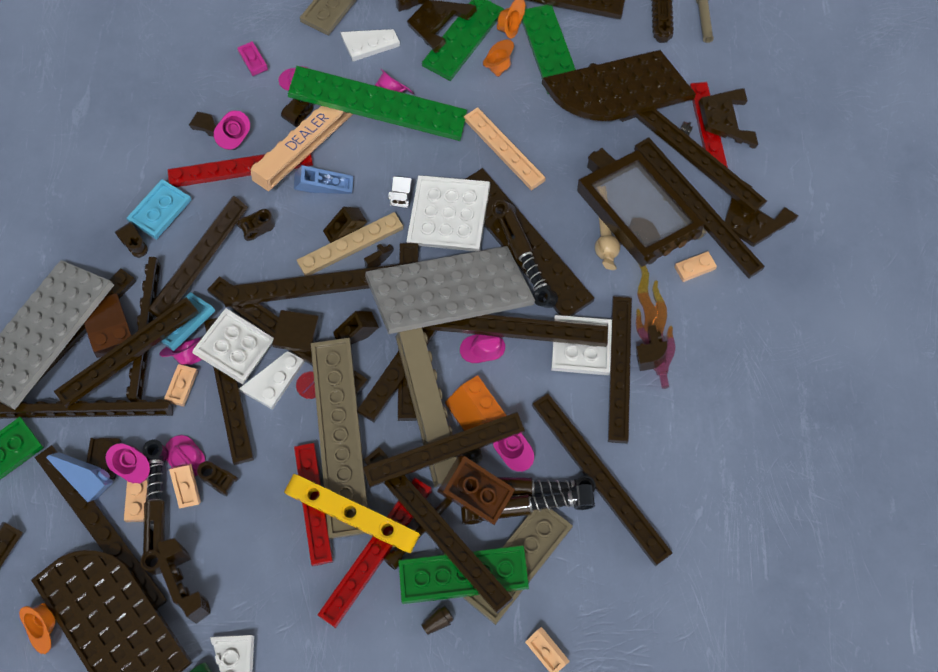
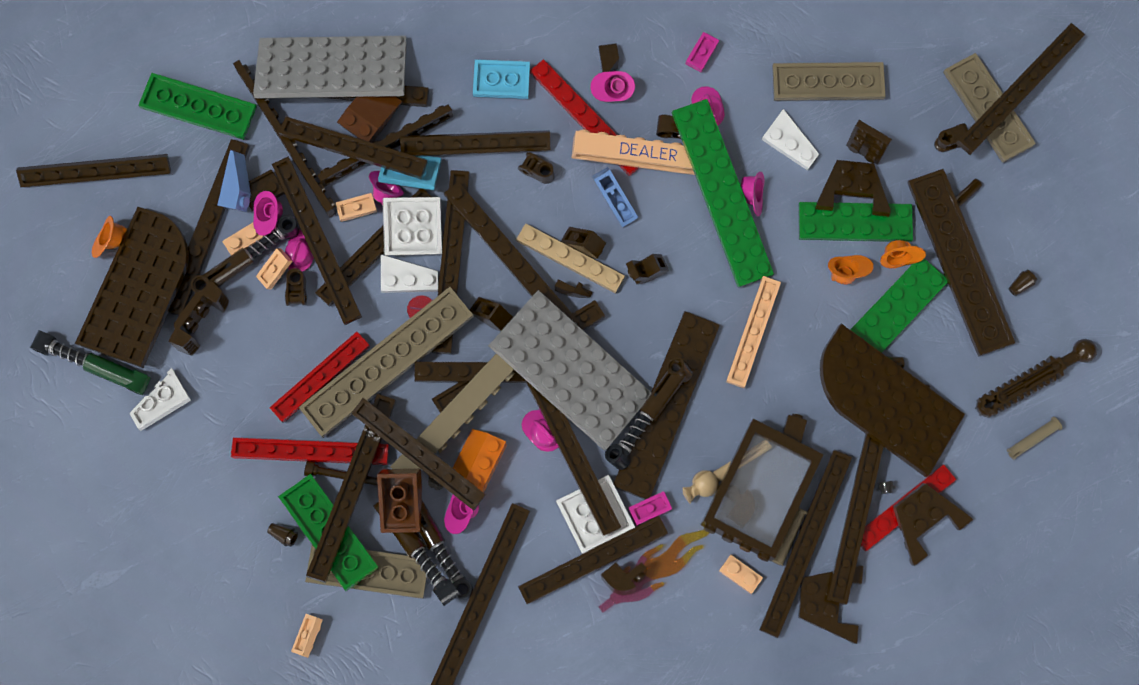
camera: 60 degrees right, 10 degrees up
(132, 240) = (458, 78): dark brown piece -> none
(186, 433) = (317, 241): none -> dark brown plate
(295, 331) = (456, 266): dark brown tile -> none
(364, 520) = (324, 427): yellow beam -> none
(448, 213) = (650, 323): white plate -> none
(602, 300) = (650, 508): none -> dark pink plate

